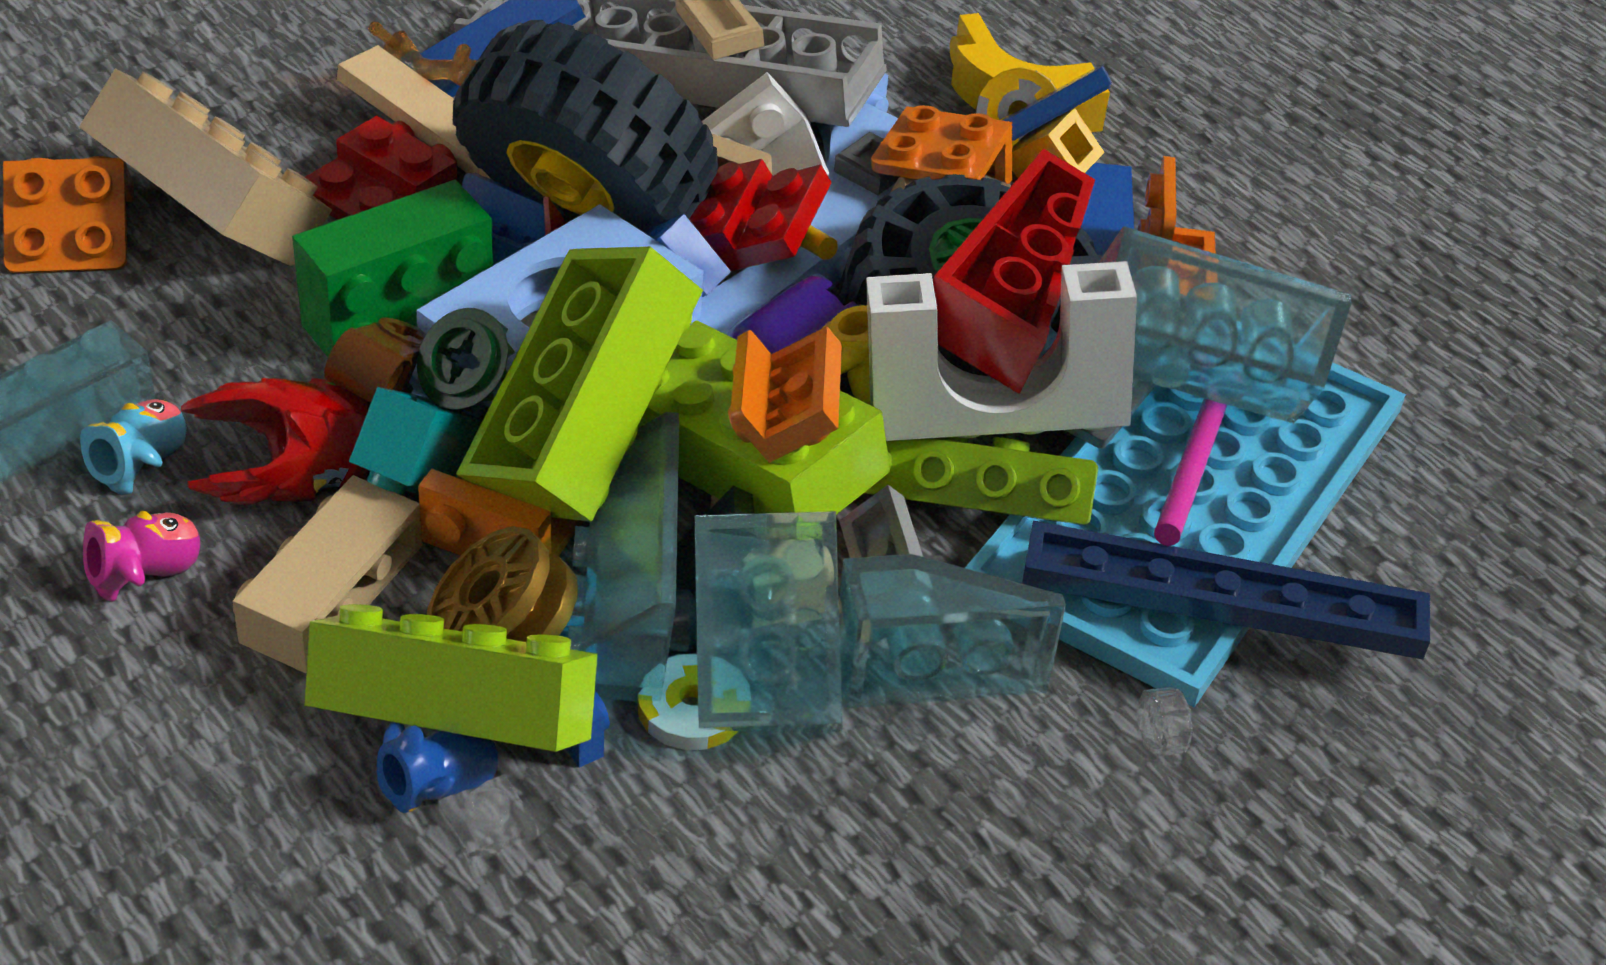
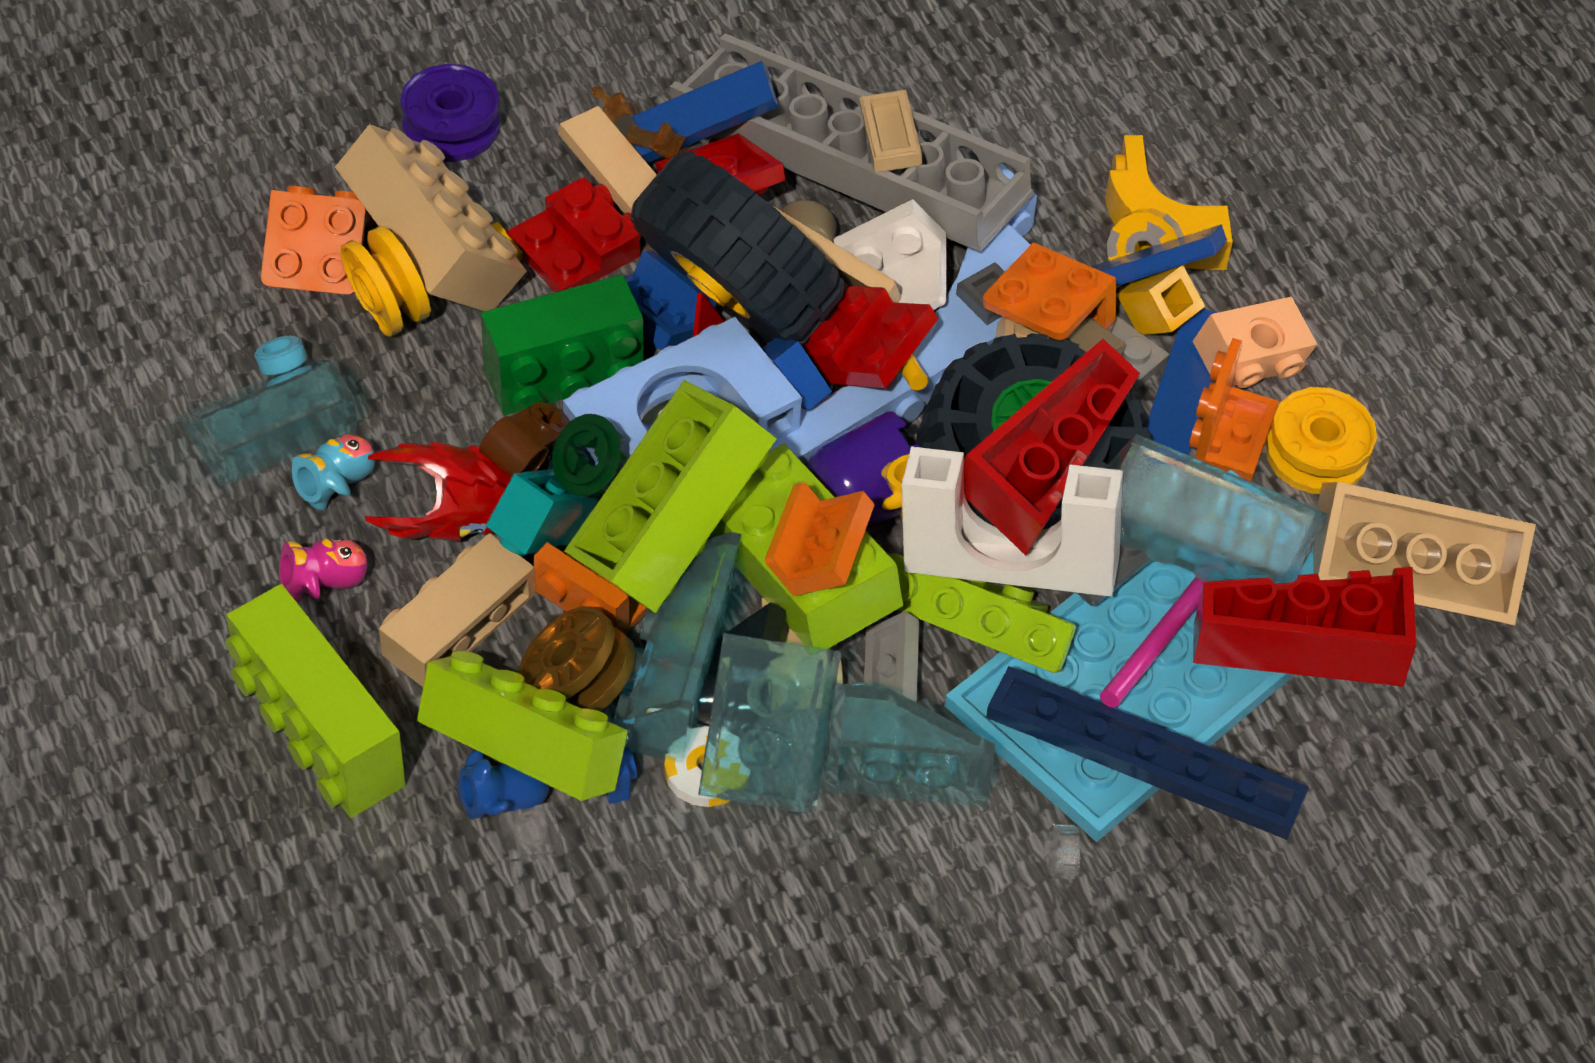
camera: 15 degrees right, 10 degrees up
(43, 334) = (280, 355): none -> medium azure tile
(162, 233) = (385, 280): none -> yellow wheel
(165, 698) = (315, 702): none -> lime brick
(211, 68) = (452, 110): none -> dark purple wheel
(1200, 176) = (1272, 340): none -> light nougat brick
(1280, 244) = (1320, 439): none -> yellow wheel
(1359, 428) = (1311, 626): none -> red wedge
(1444, 343) = (1458, 555): none -> tan slope

